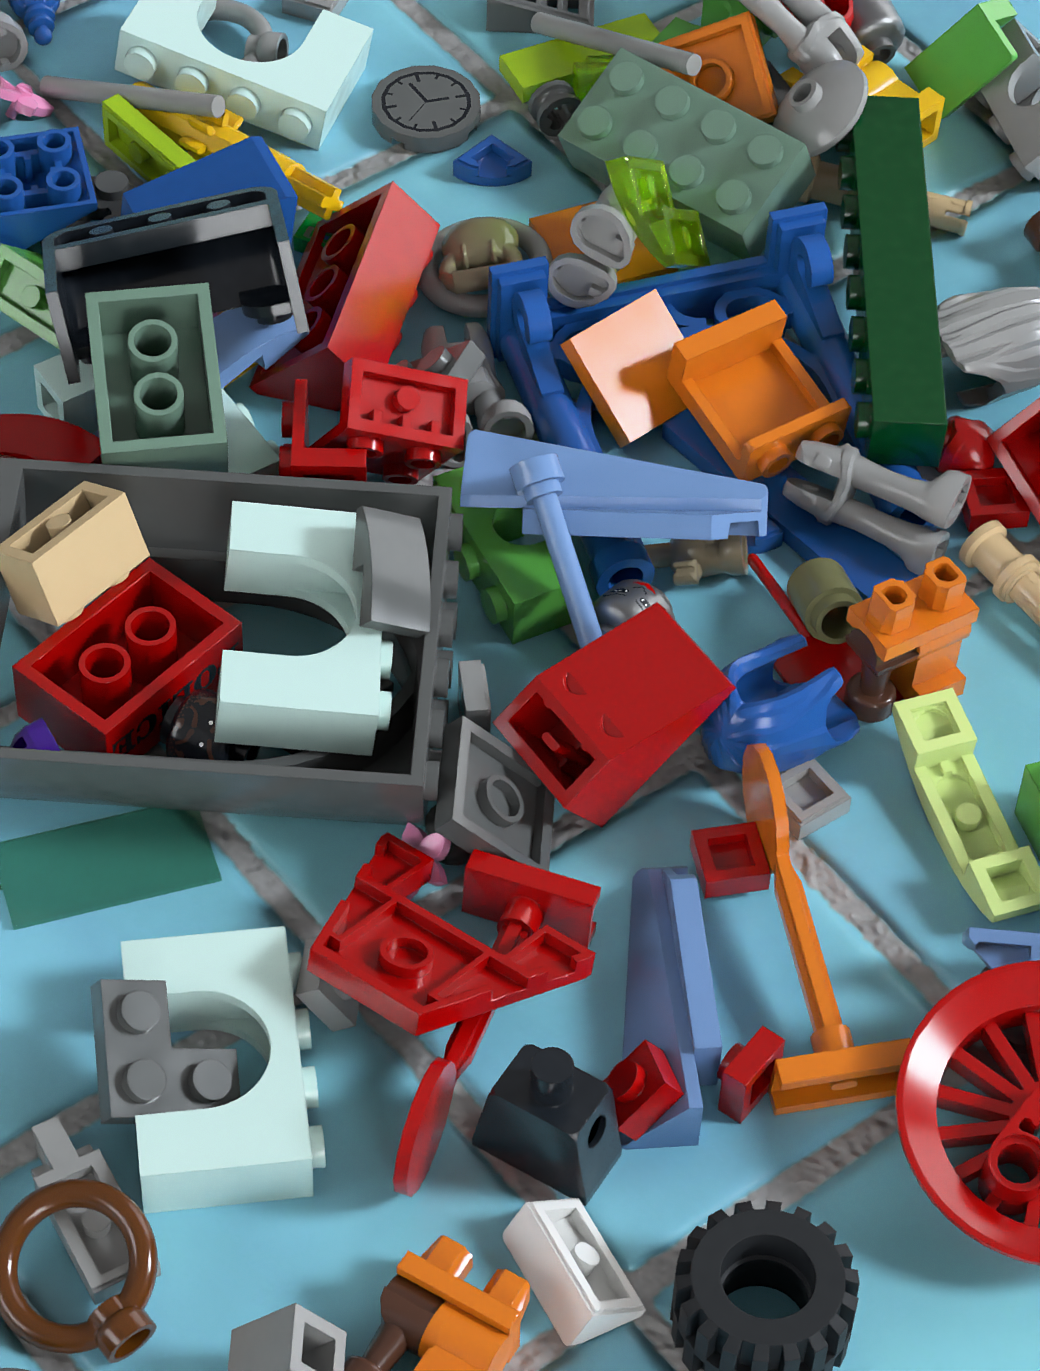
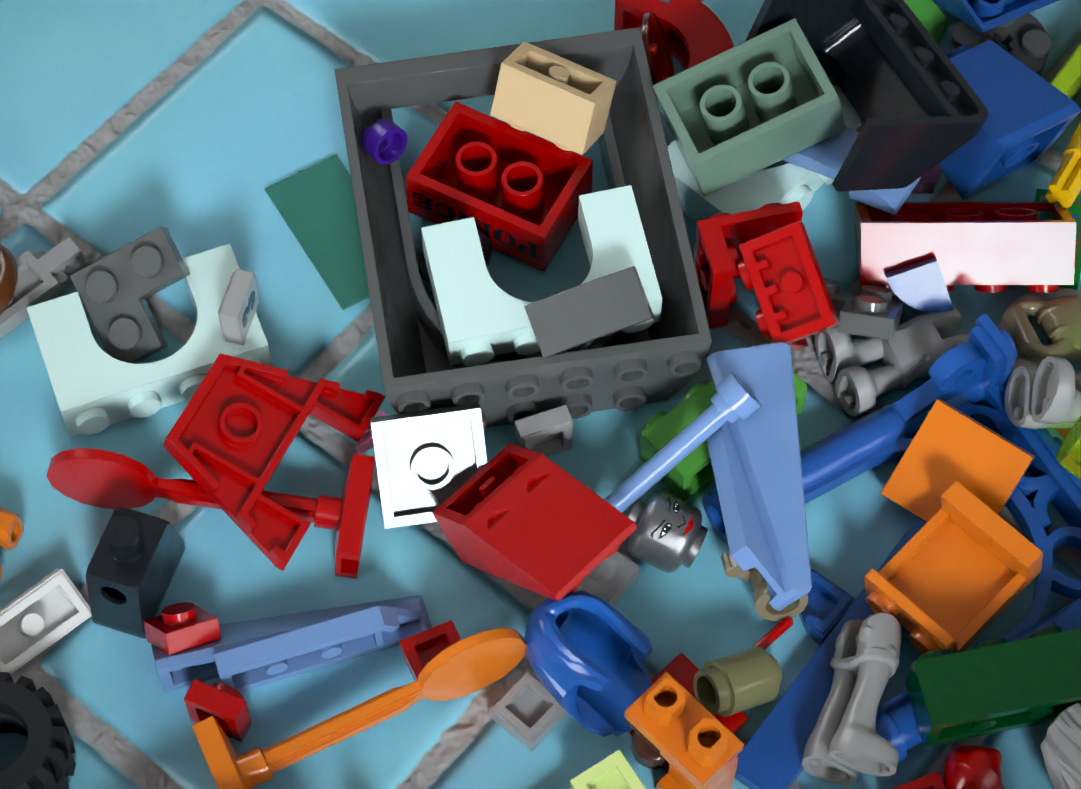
camera: 80 degrees right, 10 degrees up
(240, 926) = (238, 306): none -> light grey tile
(403, 334) = (921, 286): none -> tile

